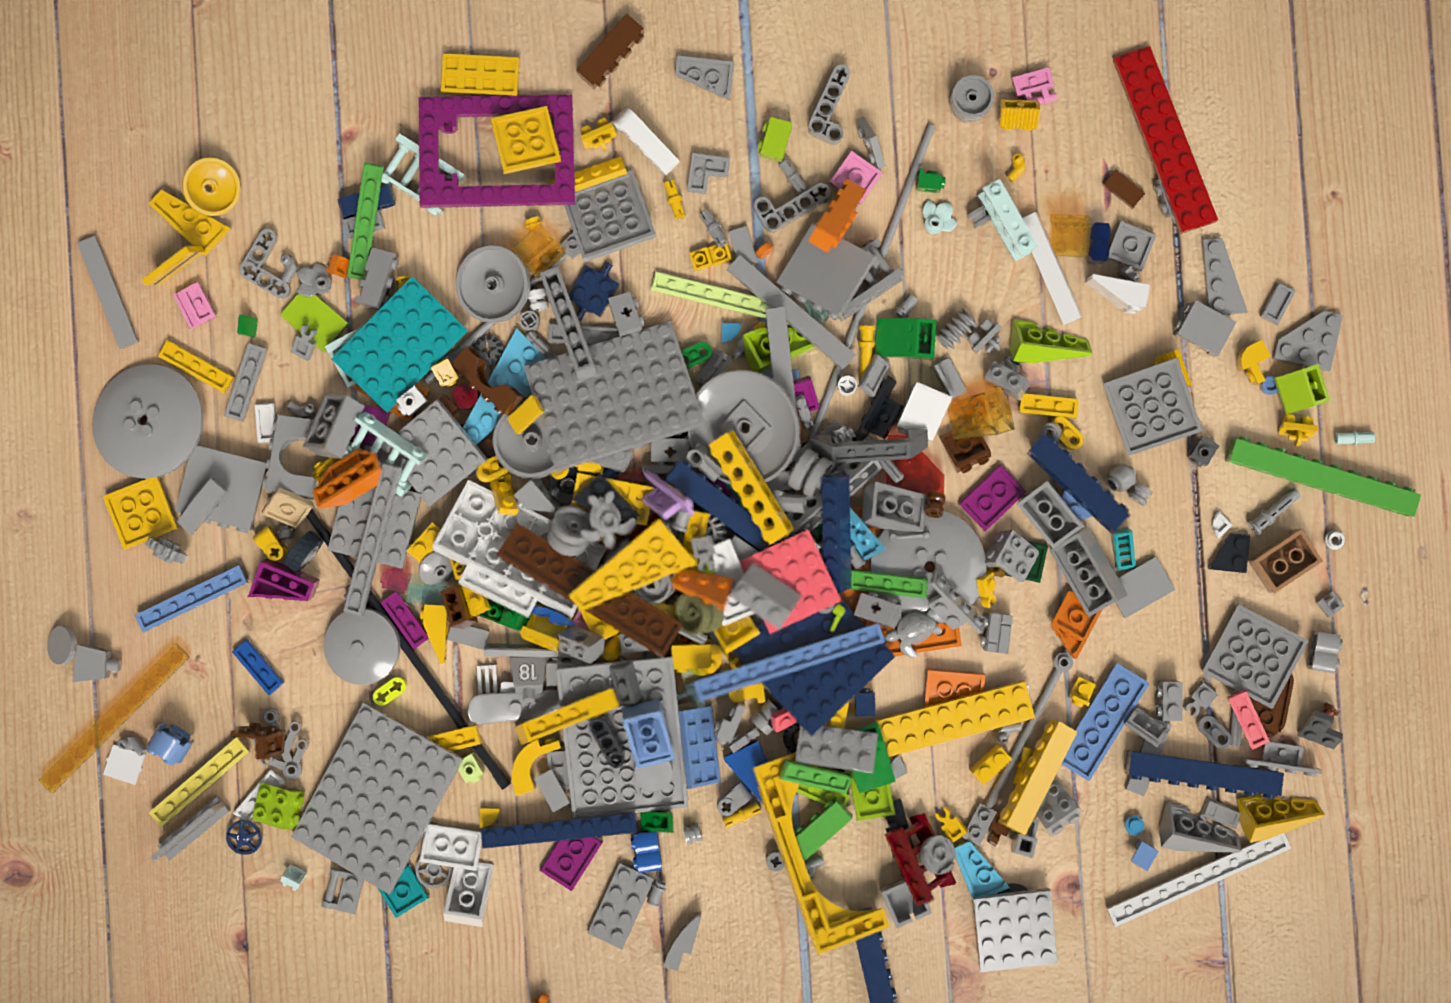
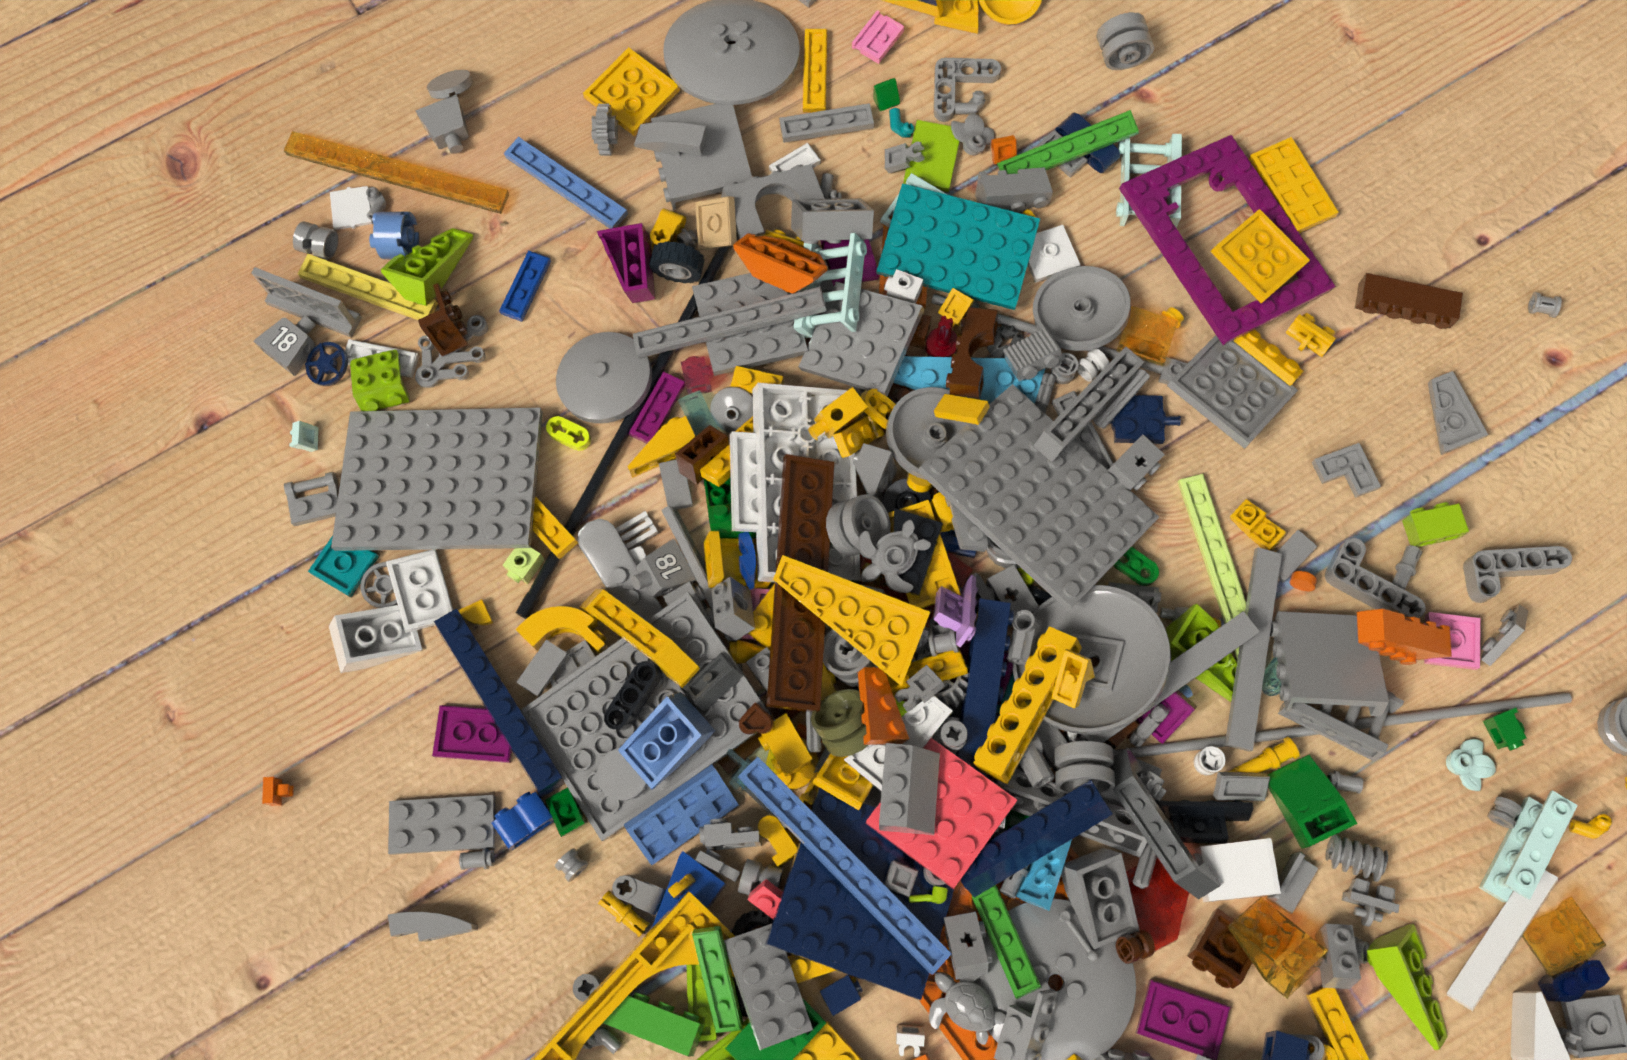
camera: 65 degrees right, 15 degrees down
(138, 805) = (316, 240): none -> light grey wheel
(208, 730) = (427, 265): none -> lime wedge
(213, 857) = (288, 343): none -> light grey torso
(276, 331) = (902, 129): none -> teal arm
(302, 128) = (1125, 41): none -> light grey wheel
(438, 278) = (1051, 254): none -> white plate
(485, 495) = (838, 415): none -> yellow torso
(511, 340) = (1033, 355): none -> light grey brick
(574, 296) = (1122, 397): none -> light grey axle
(631, 125) = (1340, 385): white beam -> none
(667, 668) = (756, 720): none -> reddish brown tile
(674, 200) = (1294, 452): yellow pin -> none
(713, 228) = (1291, 510): light grey pin -> none
(730, 331) = (1187, 592): dark azure tile -> none
(746, 770) = (680, 887): none -> yellow tile
(747, 544) = (954, 741): none -> light grey wheel
(751, 451) = (1071, 678): none -> yellow slope
(816, 629) = (900, 878): none -> light grey tile
(912, 673) = (910, 1036): none -> white tile

